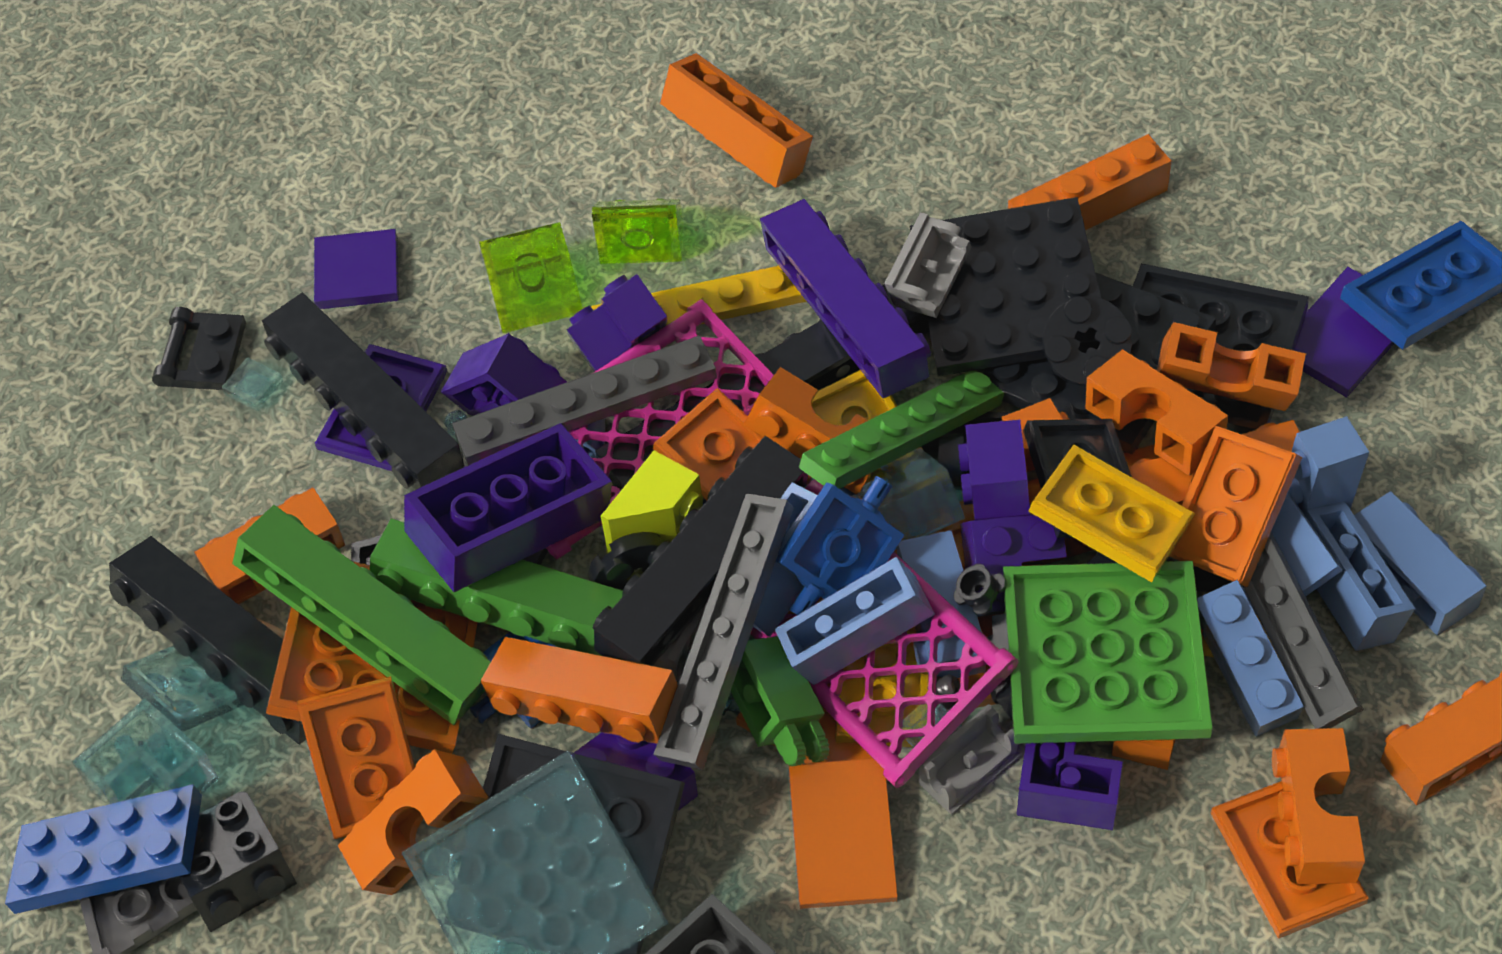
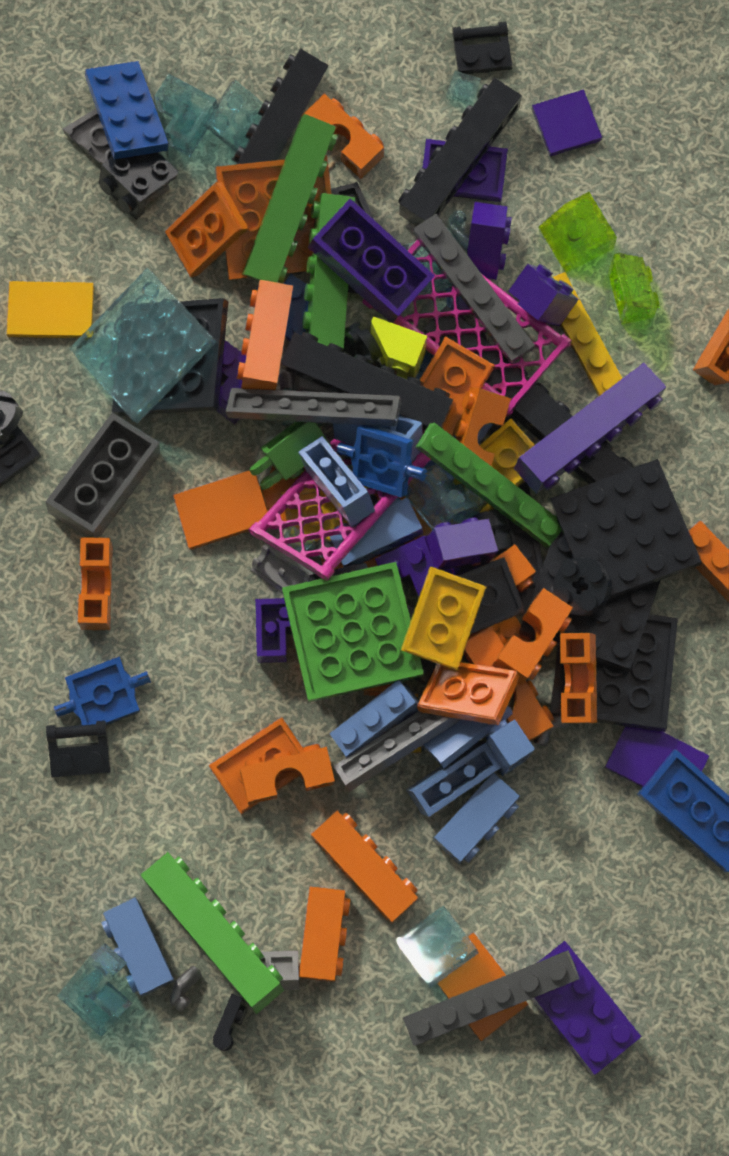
camera: 70 degrees right, 20 degrees up
(436, 792) = (175, 267): orange arch -> none
(927, 266) = (616, 474): light grey hinge -> none
(971, 581) = (379, 550): black plate -> none

